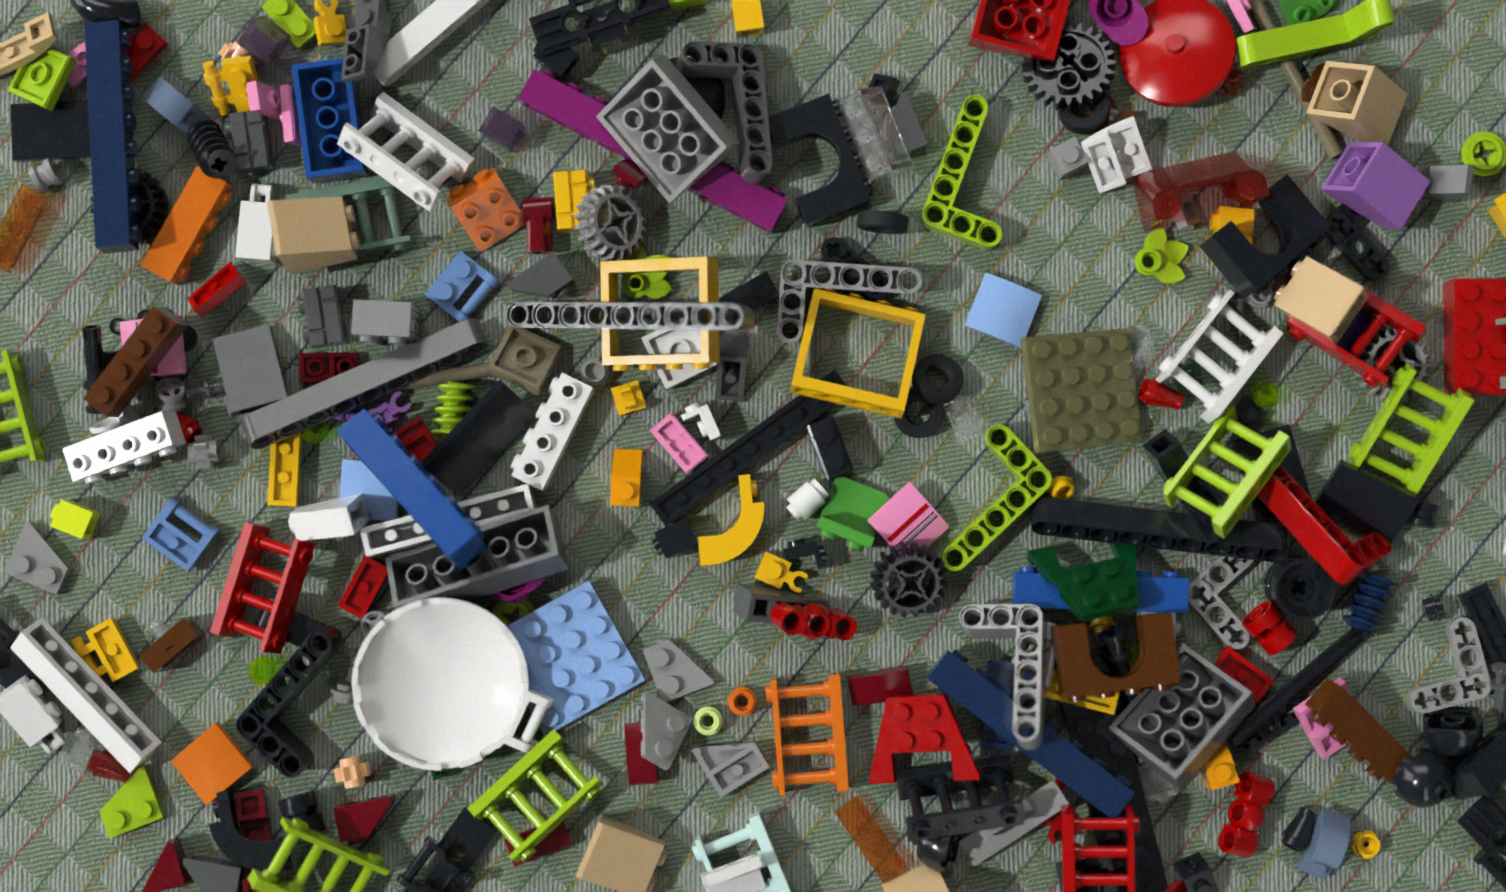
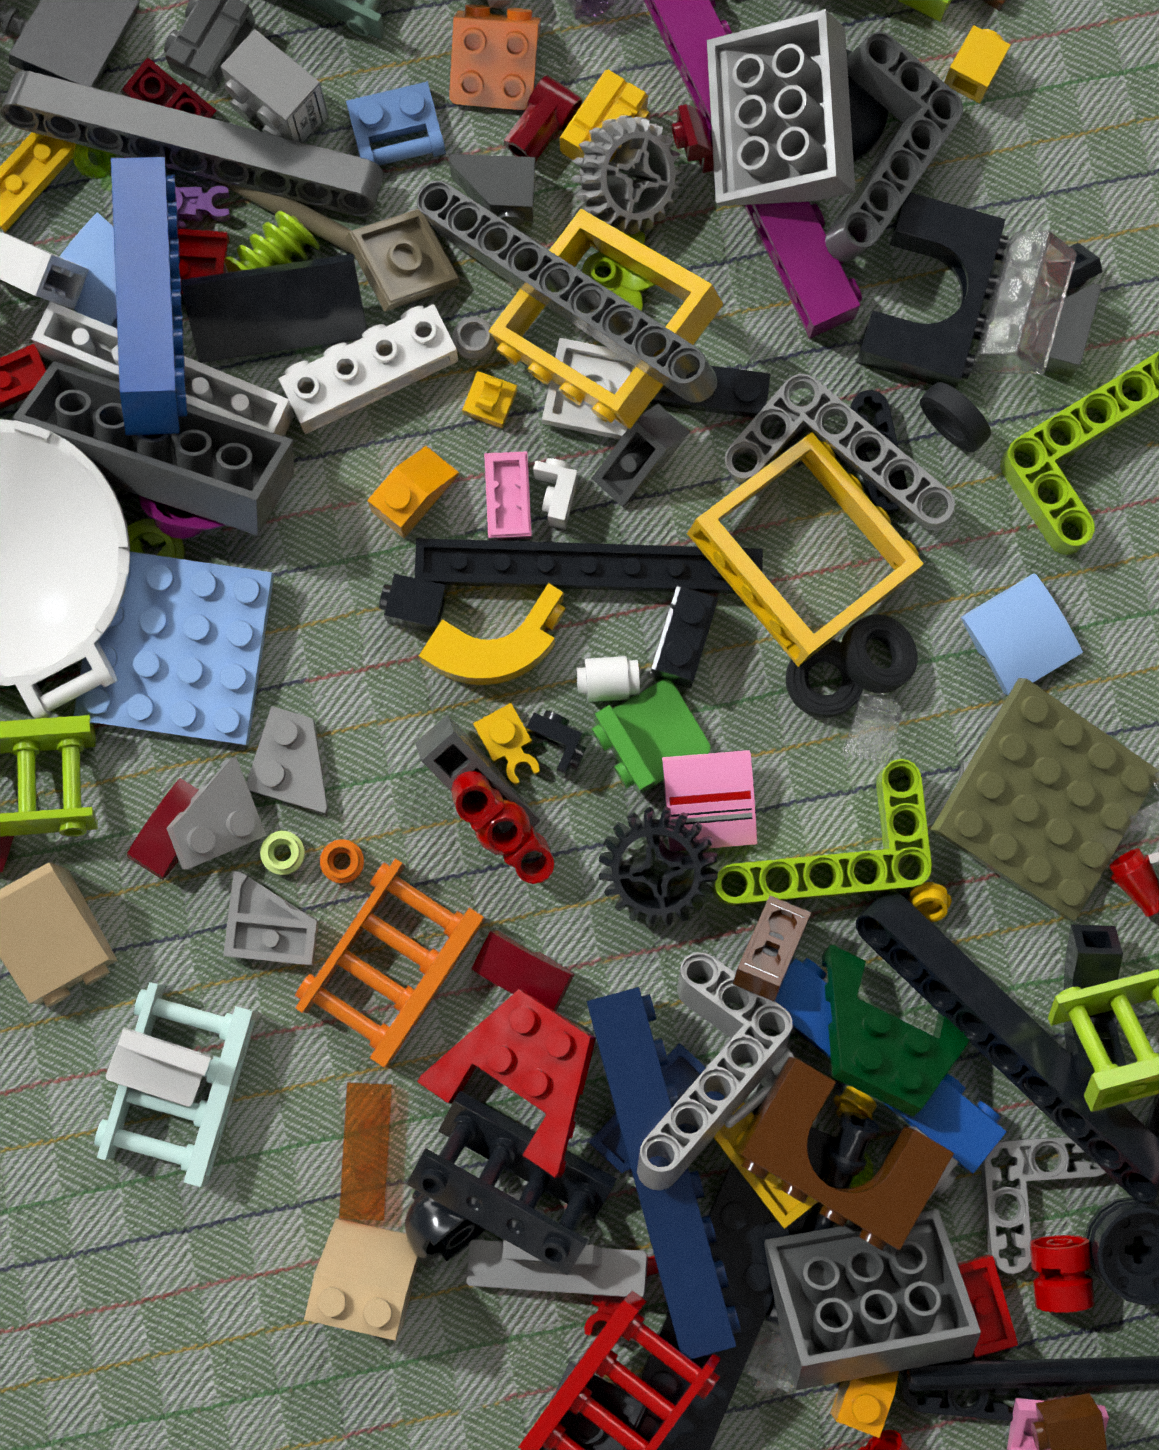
camera: 35 degrees right, 5 degrees down
(1000, 577) = (771, 948): none -> piece

